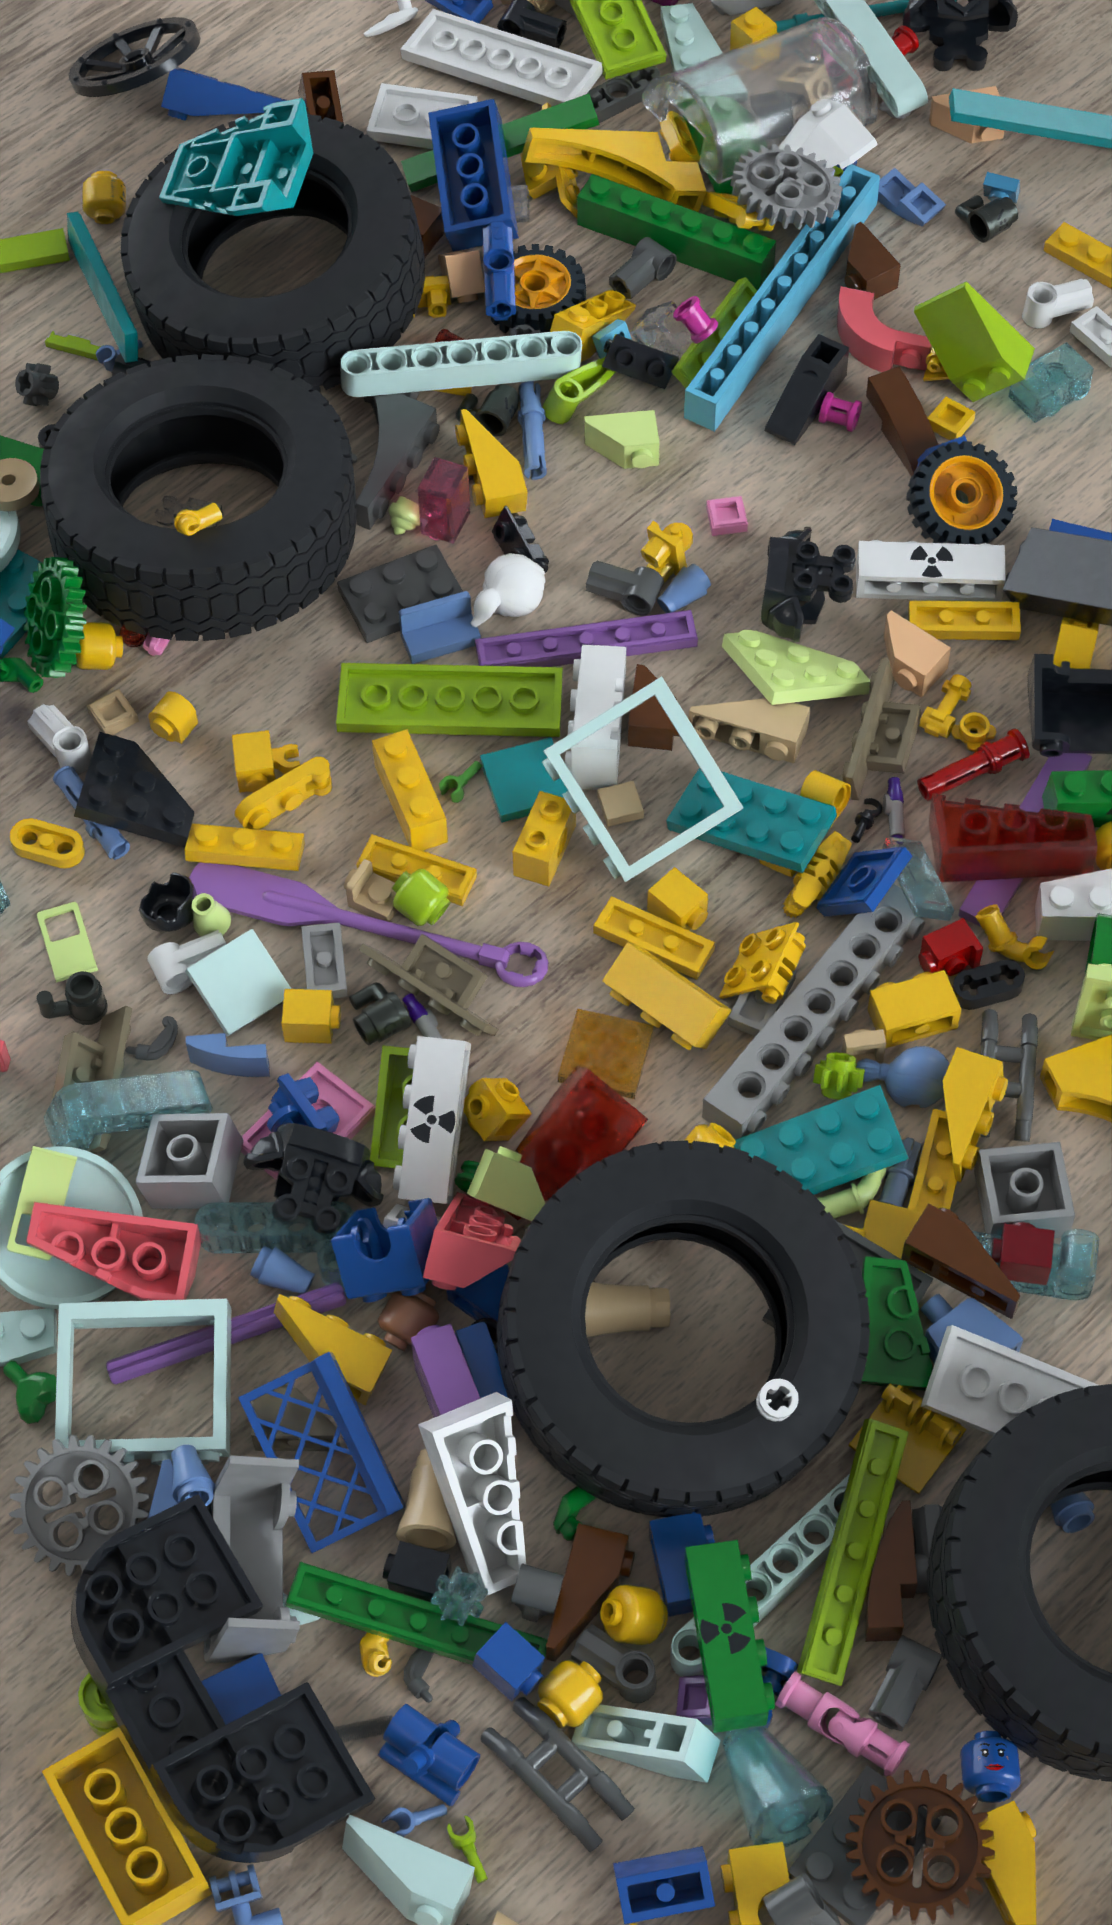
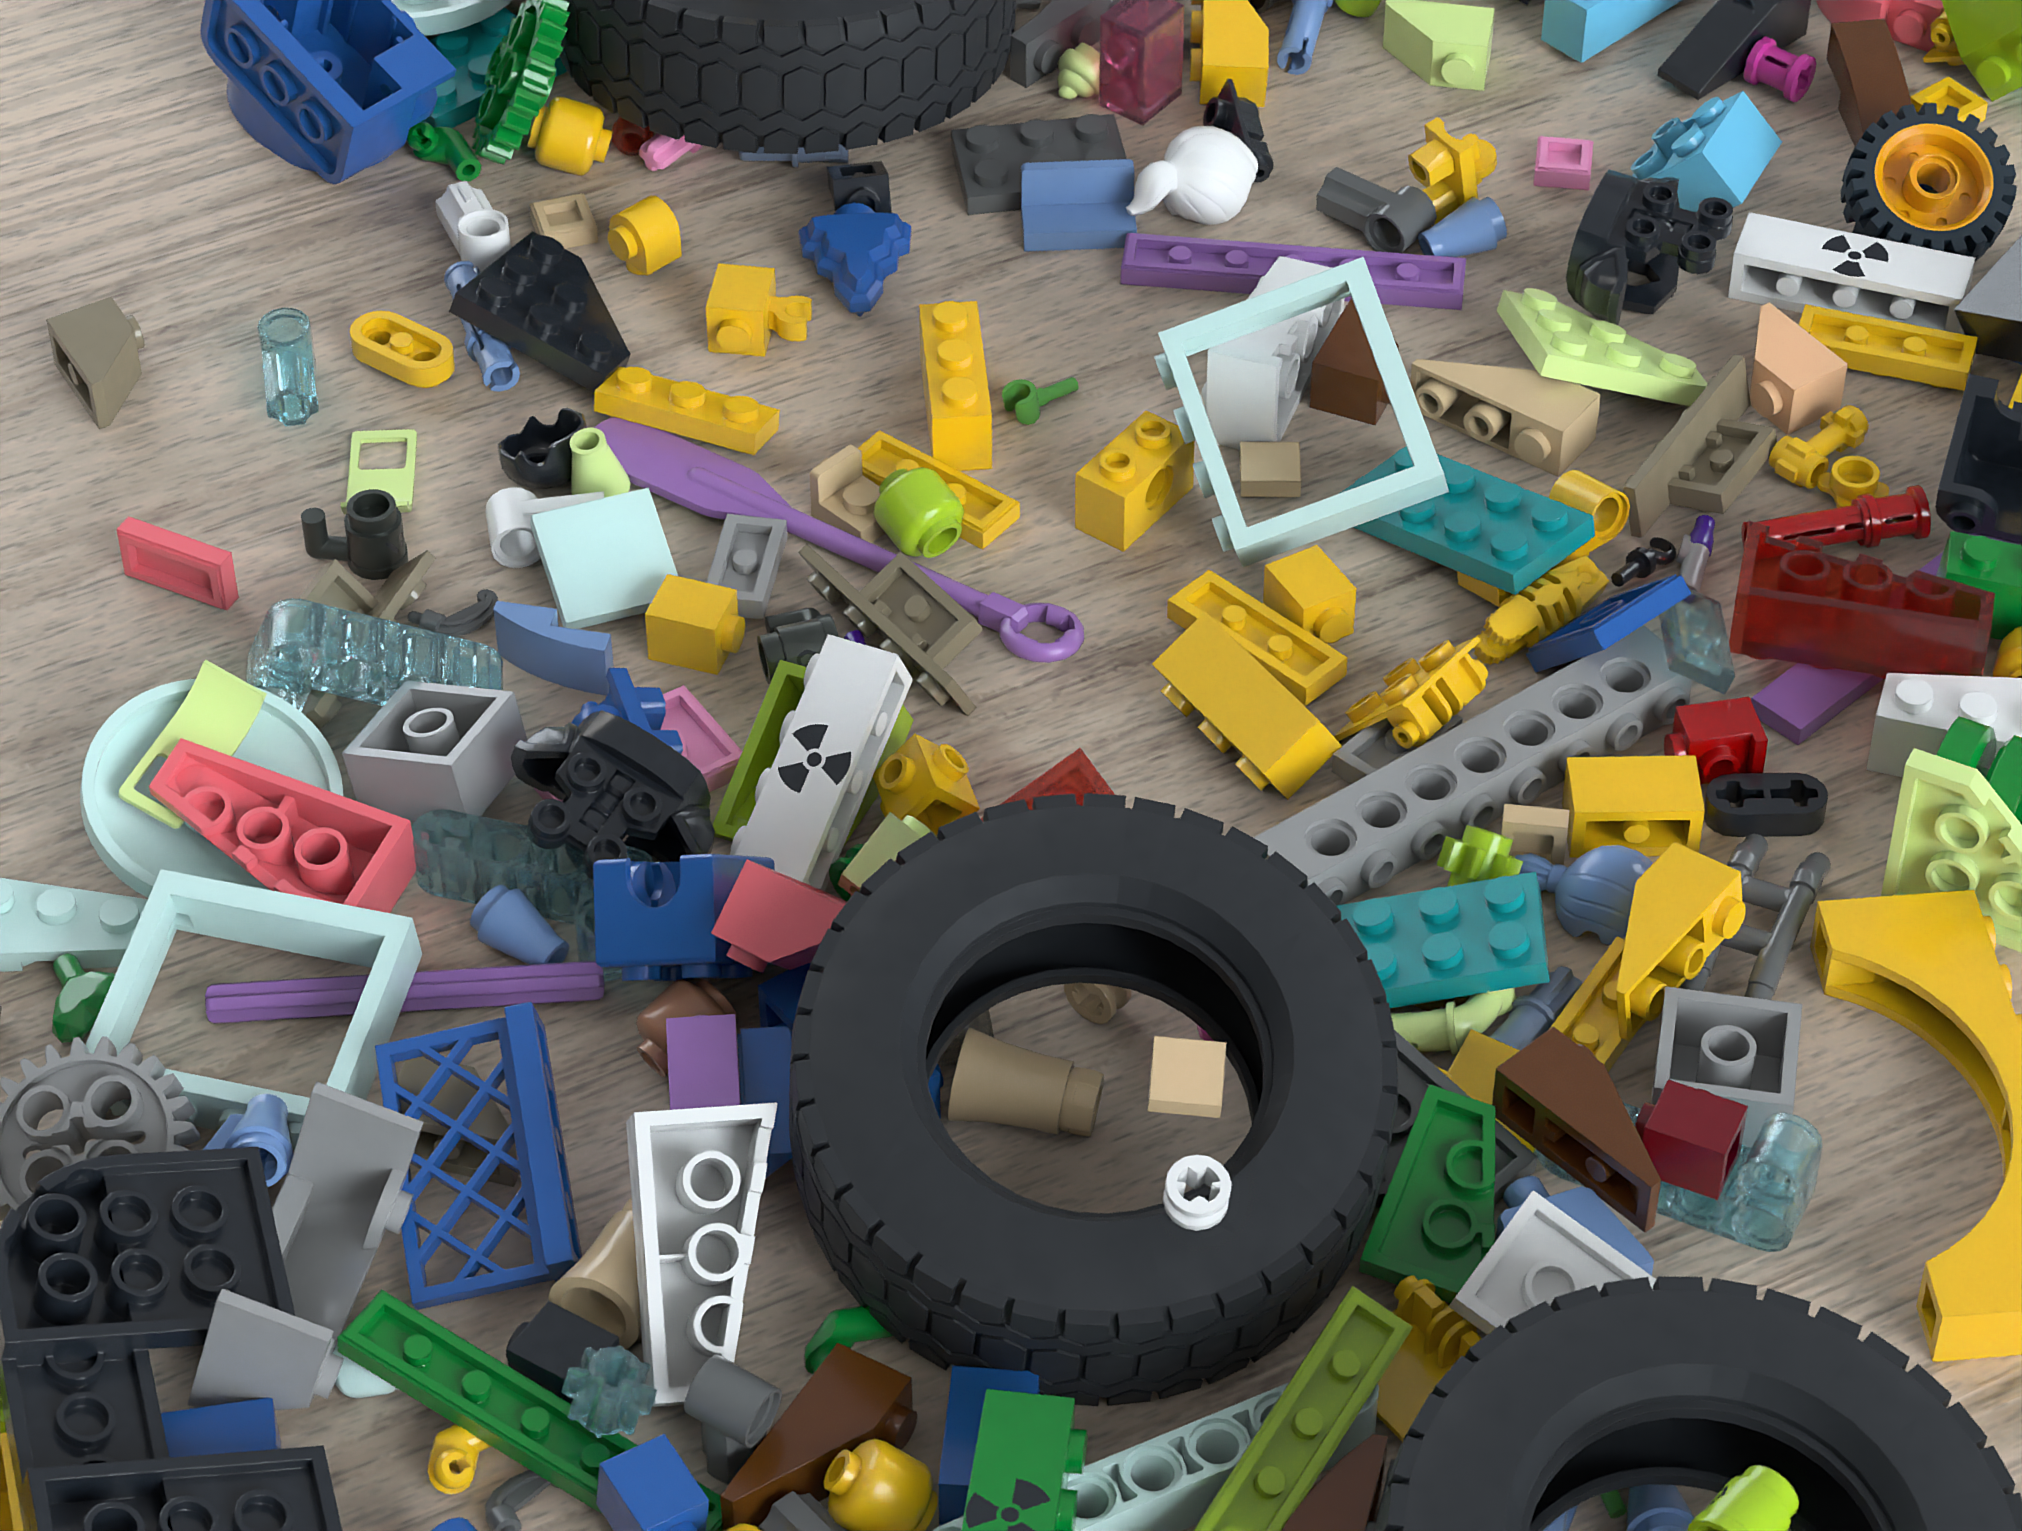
camera: 15 degrees right, 15 degrees down
(285, 793) = (771, 354): yellow plate -> none
(297, 648) = (861, 184): none -> black bracket
(310, 697) = (856, 251): none -> blue rock
(358, 1355) = (589, 1060): yellow slope -> none
(450, 699) = (1052, 290): lime plate -> none
(517, 777) = (1118, 396): teal tile -> none
(609, 1048) = (1141, 755): clear yellow tile -> none
(748, 1324) = (1187, 1077): none -> tan tile
(816, 497) = (1712, 152): none -> medium azure slope
(1006, 942) = (1810, 754): yellow piece -> none

